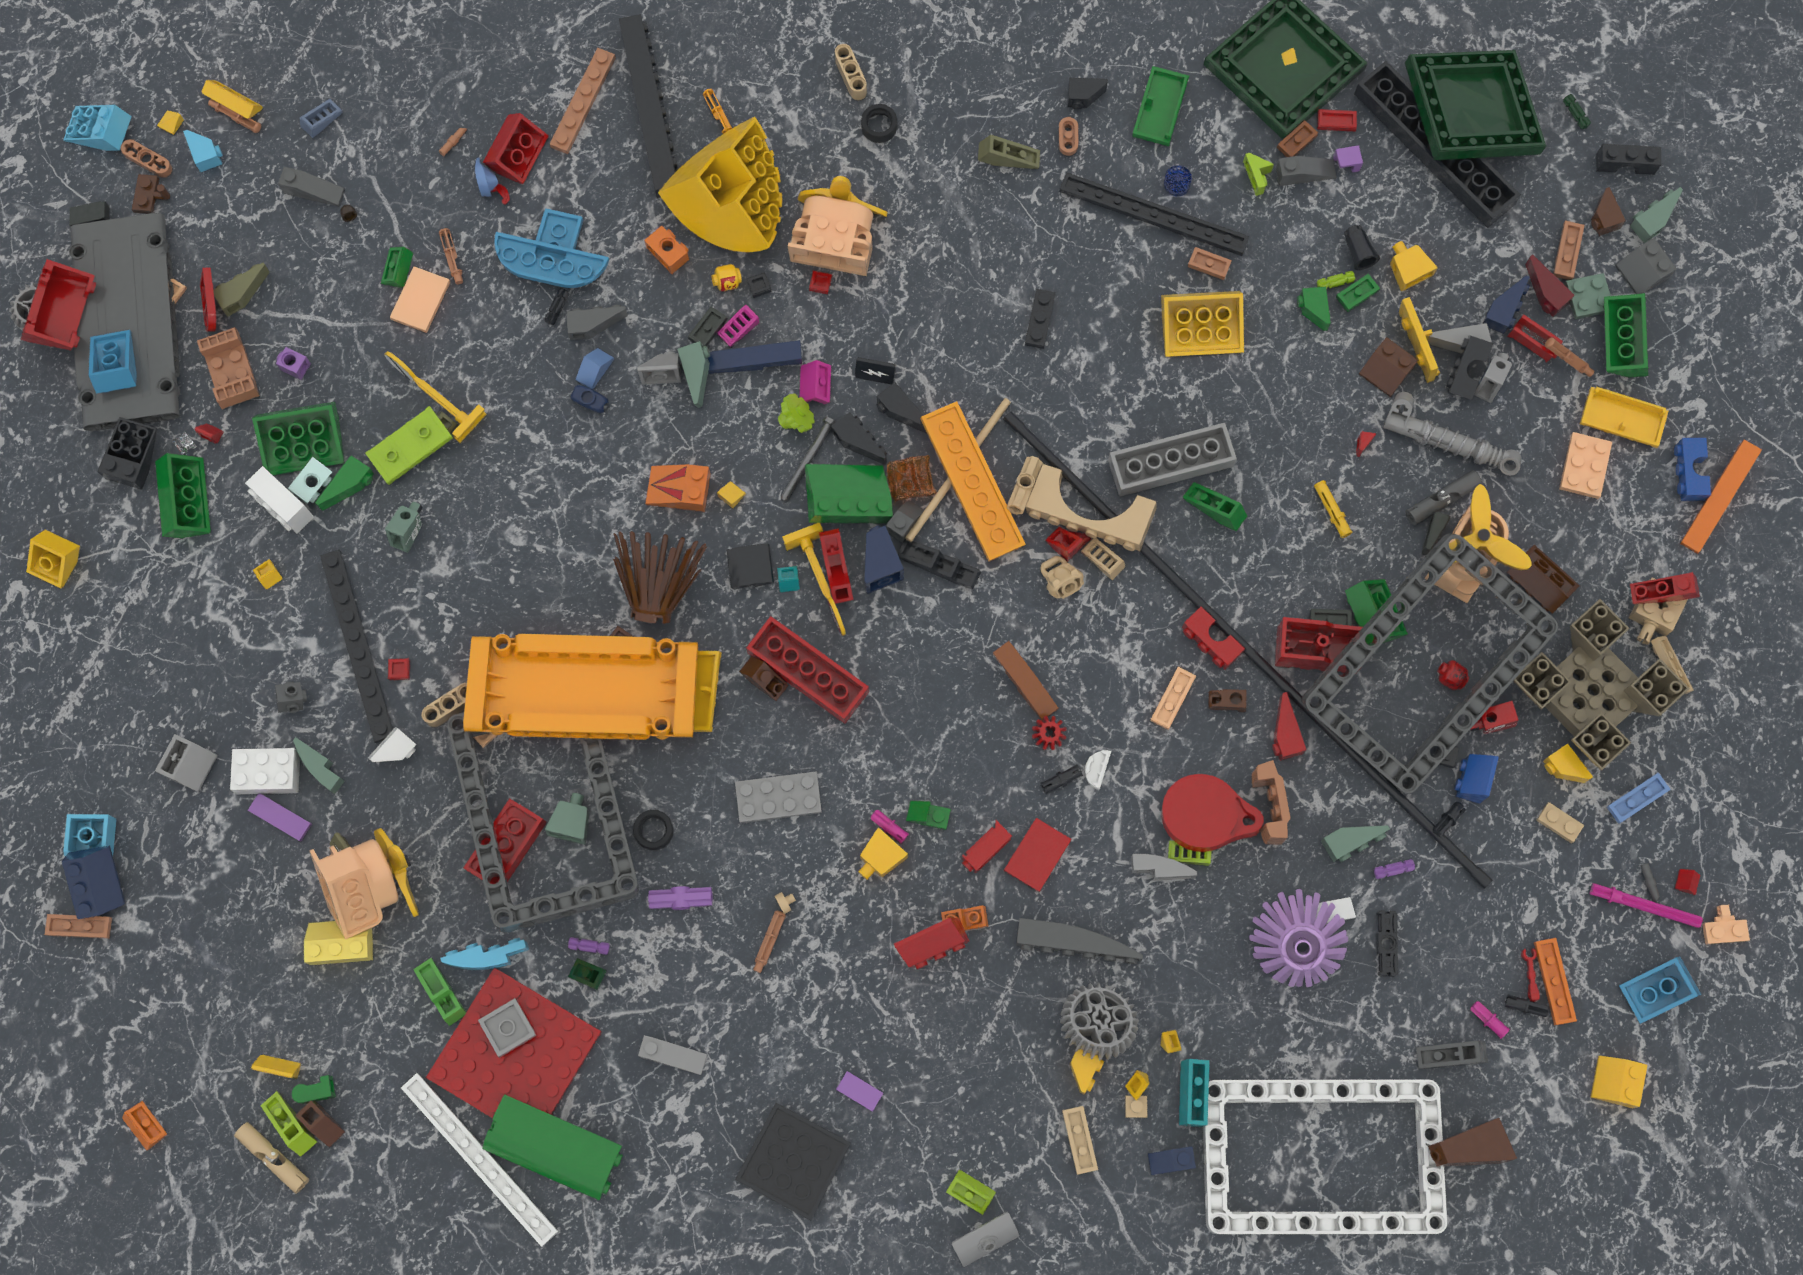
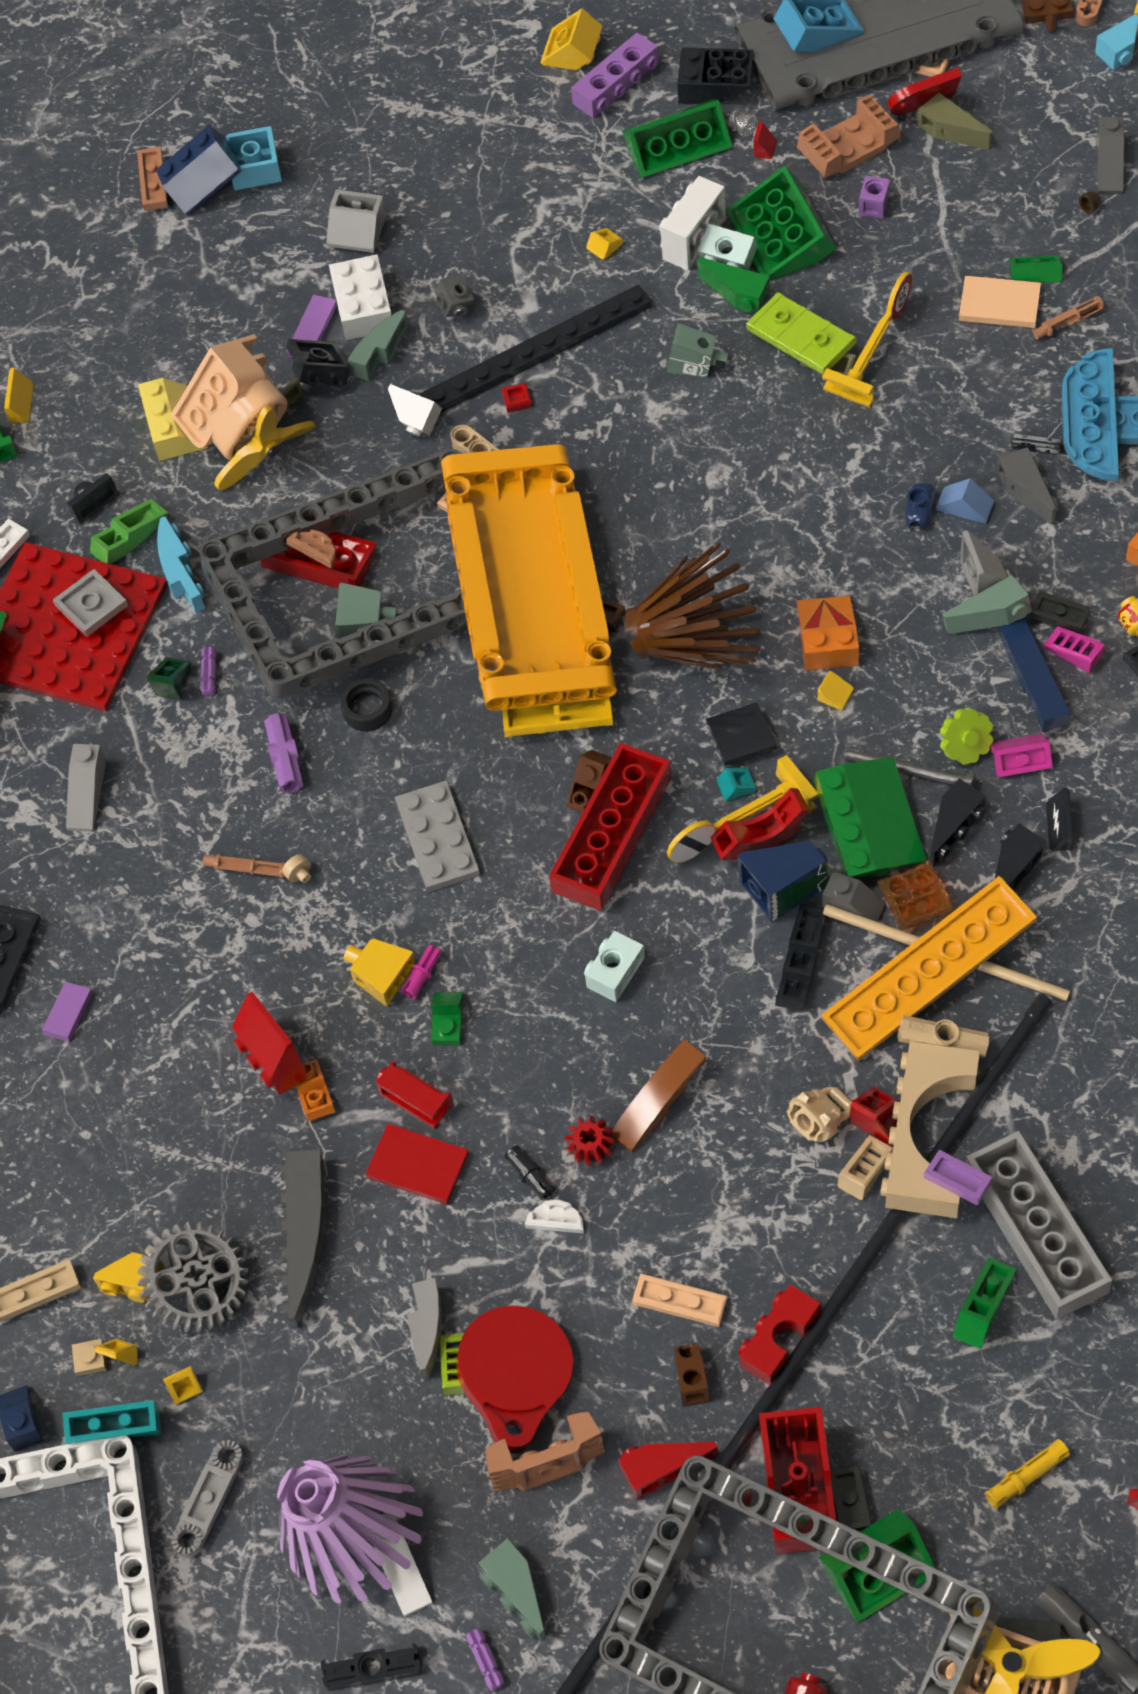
camera: 85 degrees right, 15 degrees down
(81, 507) = (615, 75): none -> medium lavender brick
(323, 814) = (318, 362): none -> black plate
(398, 1017) = (92, 497): none -> black tile
(517, 838) = (315, 545): none -> nougat tile
(913, 679) = (613, 981): none -> light aqua brick
(1138, 496) = (958, 1177): none -> medium lavender tile
(1255, 1035) = (207, 1498): none -> light grey plate

